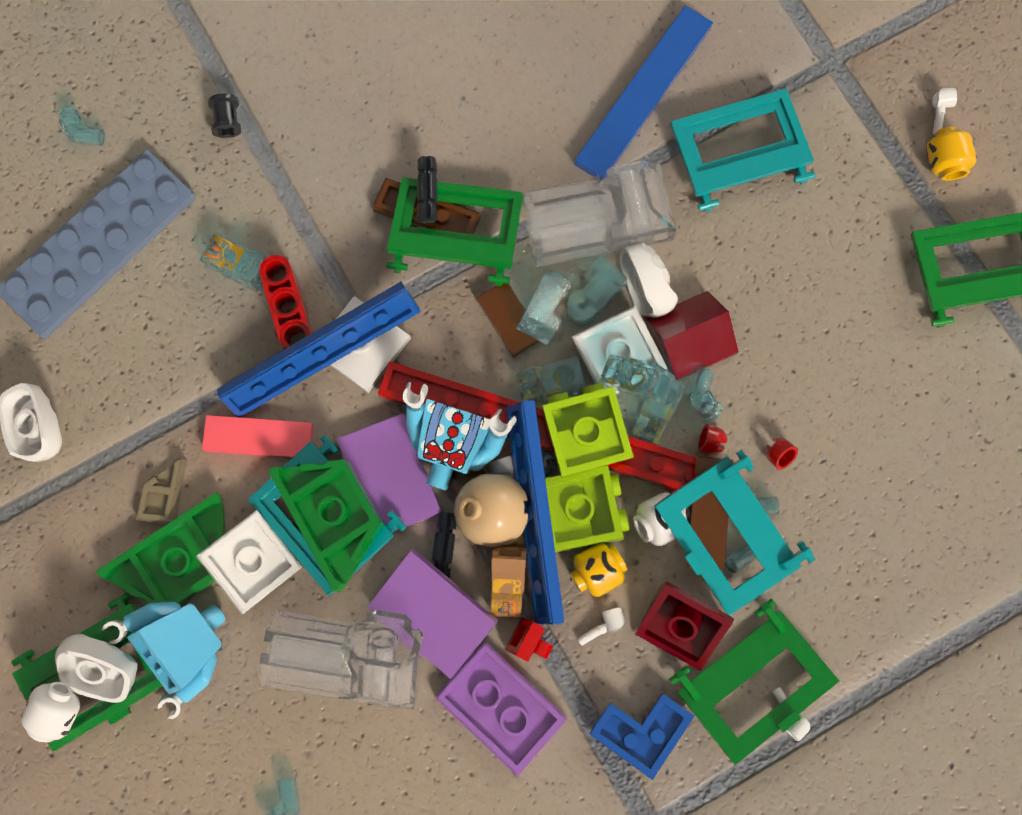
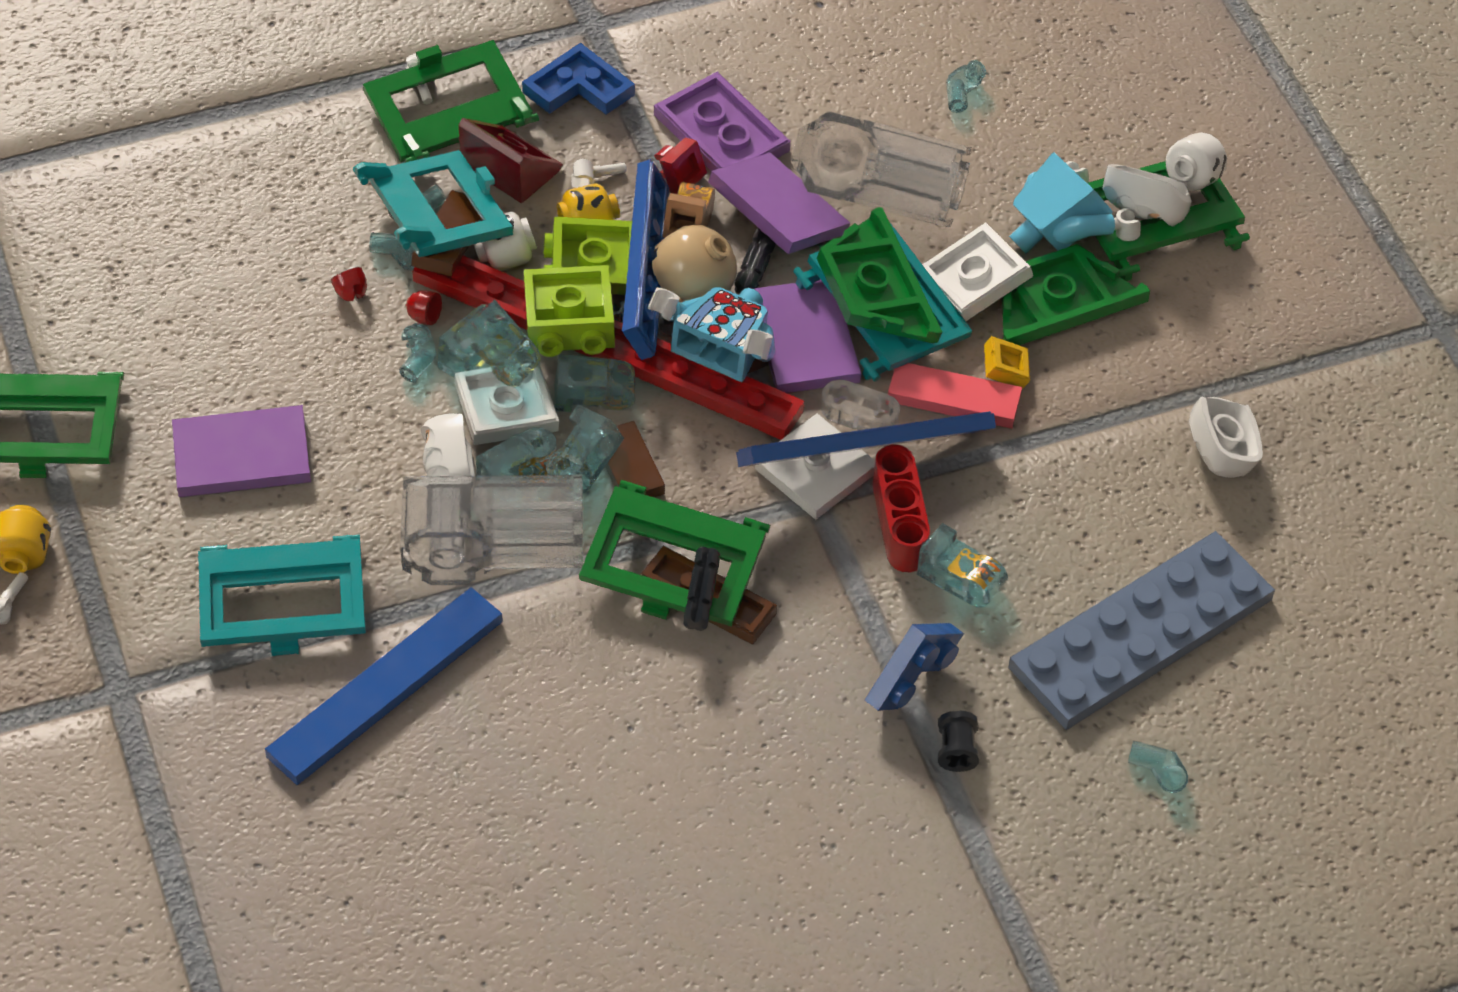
camera: 175 degrees left, 25 degrees down
(161, 495) = (1074, 359): dark tan tile -> none
(216, 474) = (1006, 362): none -> yellow tile
(254, 154) = (921, 650): none -> blue plate
(334, 399) = (859, 407): none -> clear beam
(694, 335) = (402, 409): dark red slope -> none
(814, 272) = (240, 451): none -> medium lavender tile

